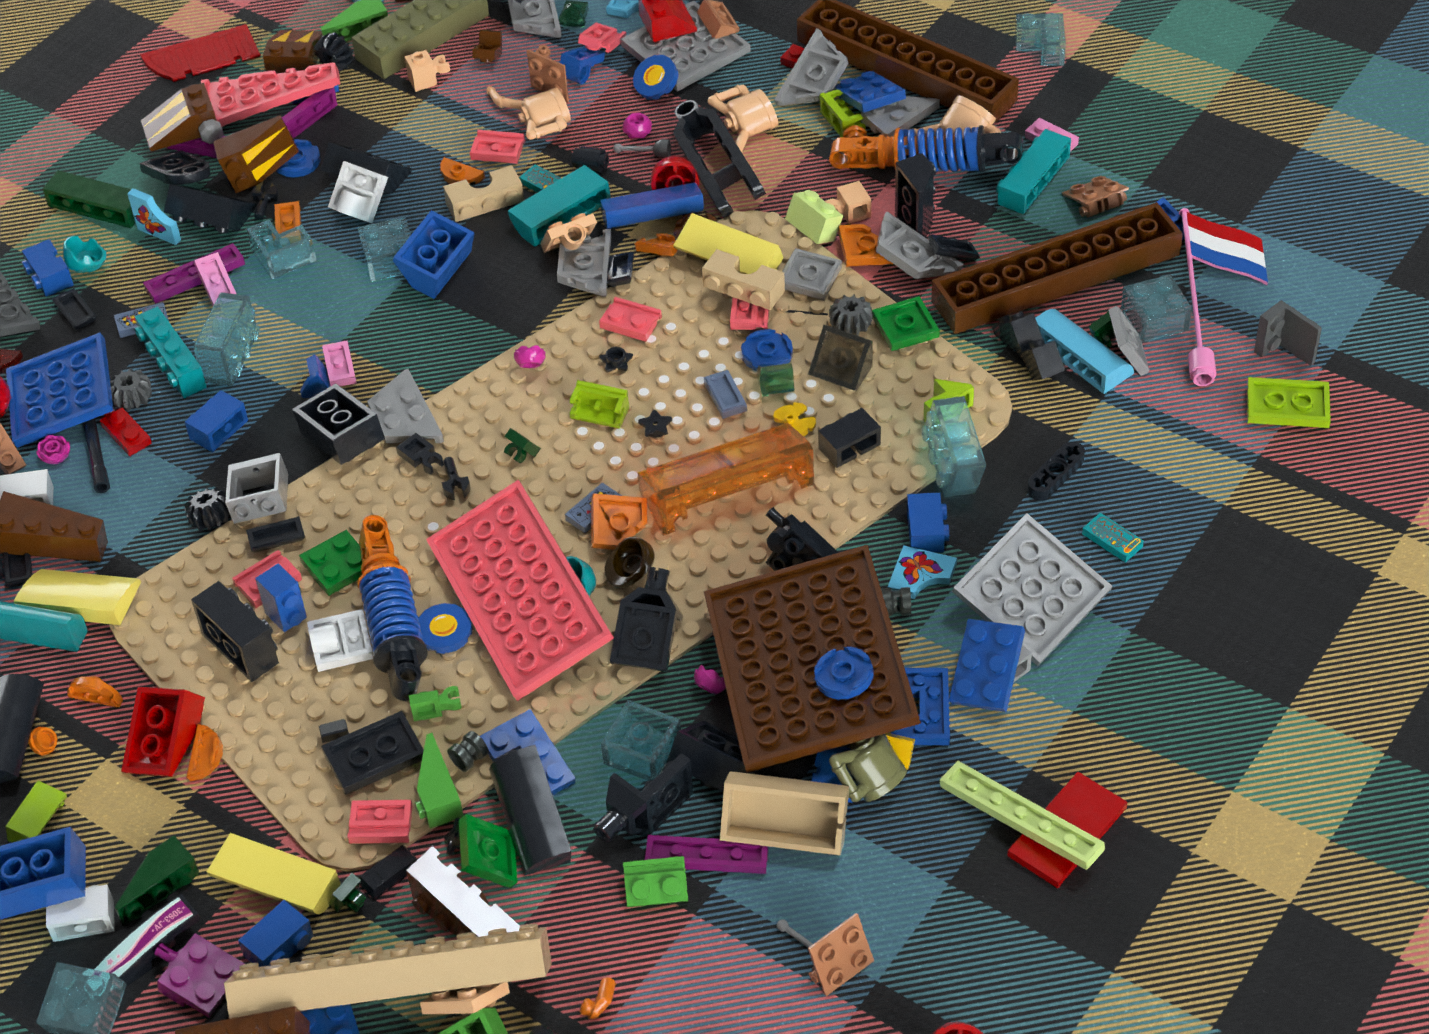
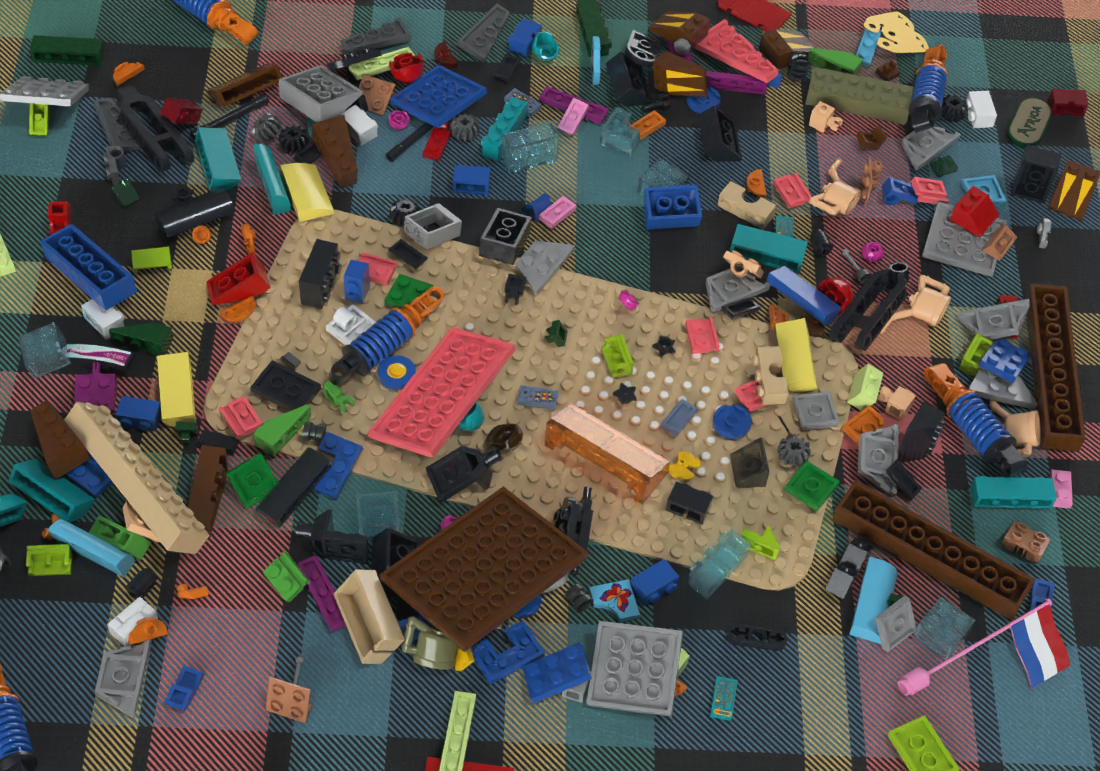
camera: 50 degrees right, 5 degrees up
(357, 192) = (693, 143): white plate -> none
(454, 480) = (509, 316): black bar -> none
(616, 519) = (531, 412): orange plate -> none
(655, 77) = (919, 237): blue tile -> none
(775, 379) = (707, 437): clear green tile -> none
(843, 673) = (474, 590): blue tile -> none
(854, 131) = (961, 373): orange plate -> none
(1289, 329) = (980, 710): dark grey bracket -> none

